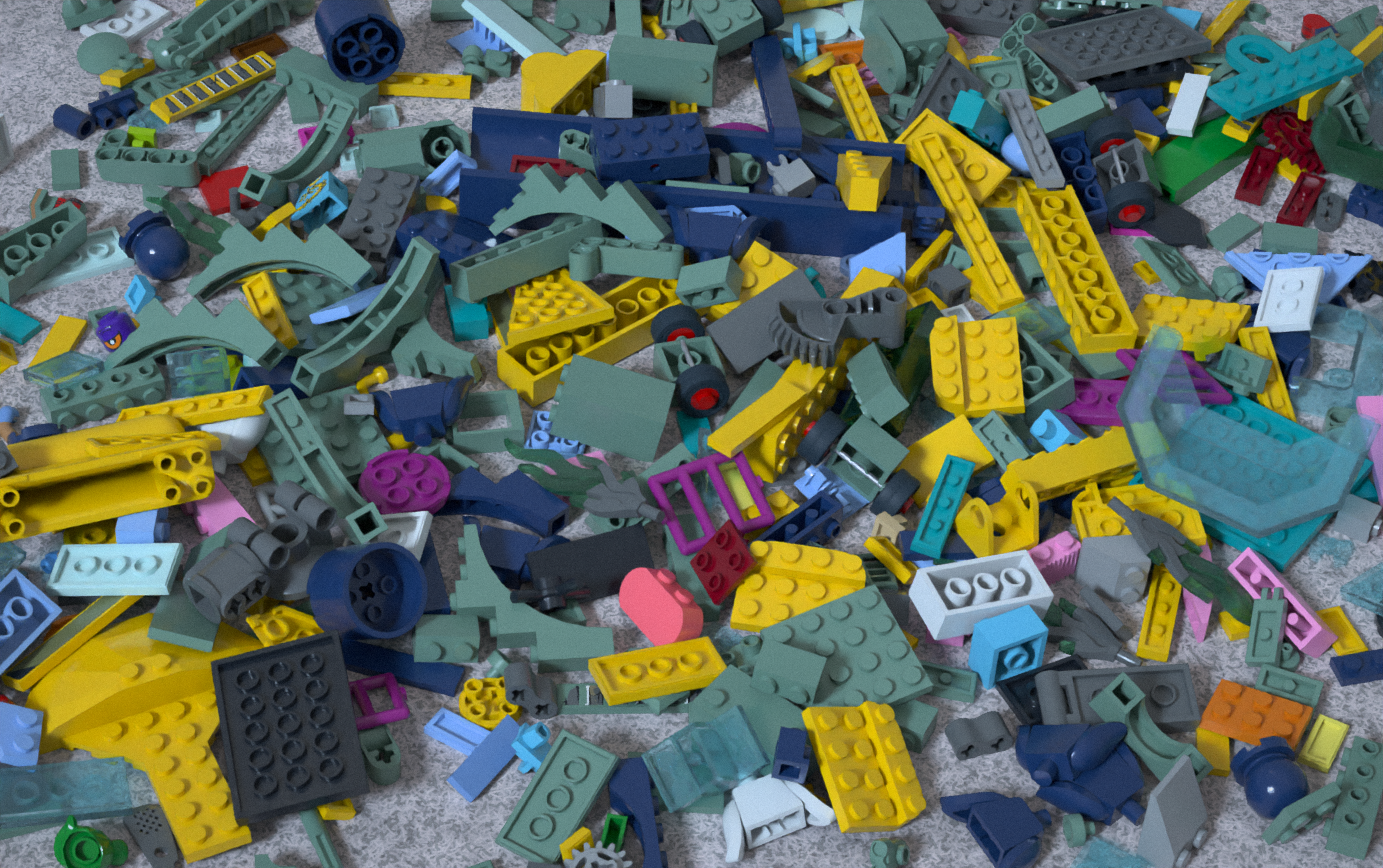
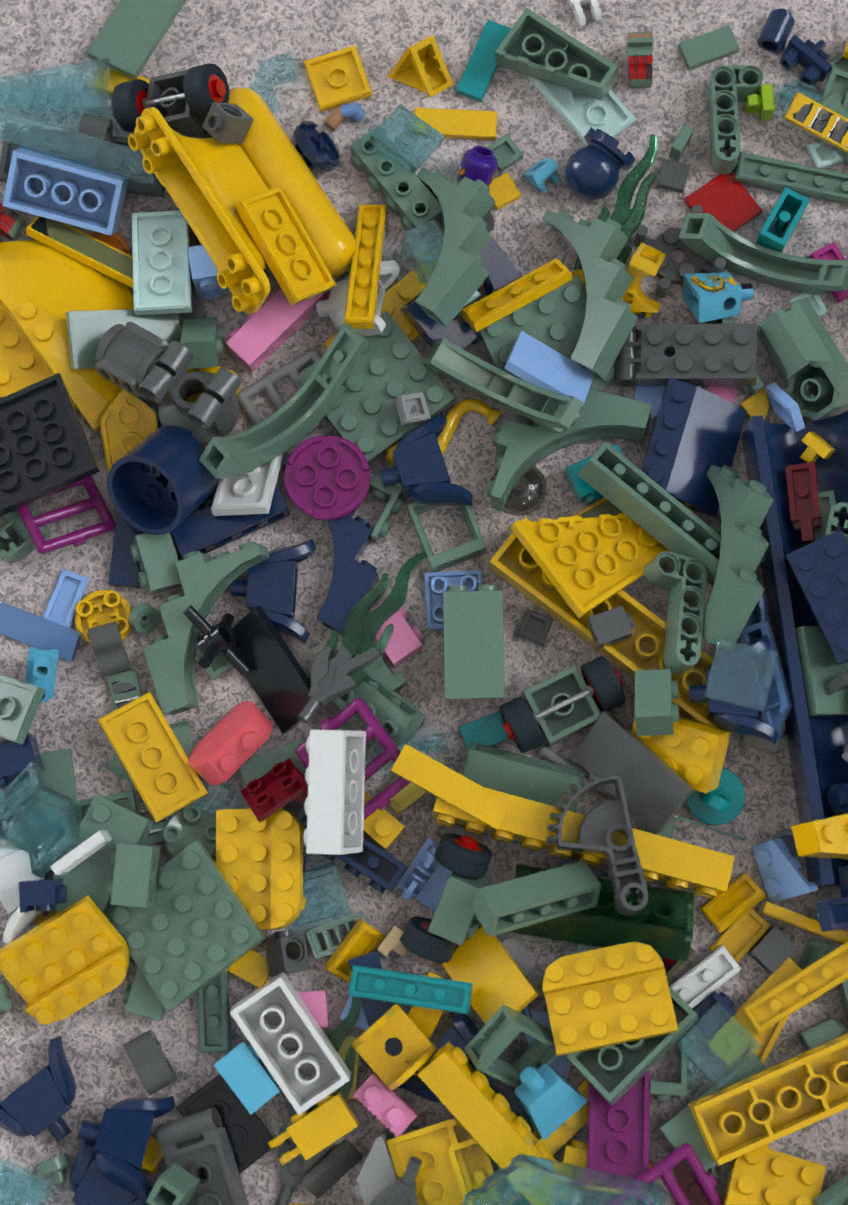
camera: 85 degrees right, 35 degrees up
(266, 146) = (783, 220): none -> teal brick
(497, 157) = (816, 447): none -> yellow tile
(628, 305) = (611, 627): none -> dark grey brick
(701, 218) = (741, 675): none -> clear light blue tile
(746, 495) = (335, 792): none -> white brick
(756, 709) = (81, 853): none -> white tile
(1071, 606) = (317, 1128): none -> yellow hinge

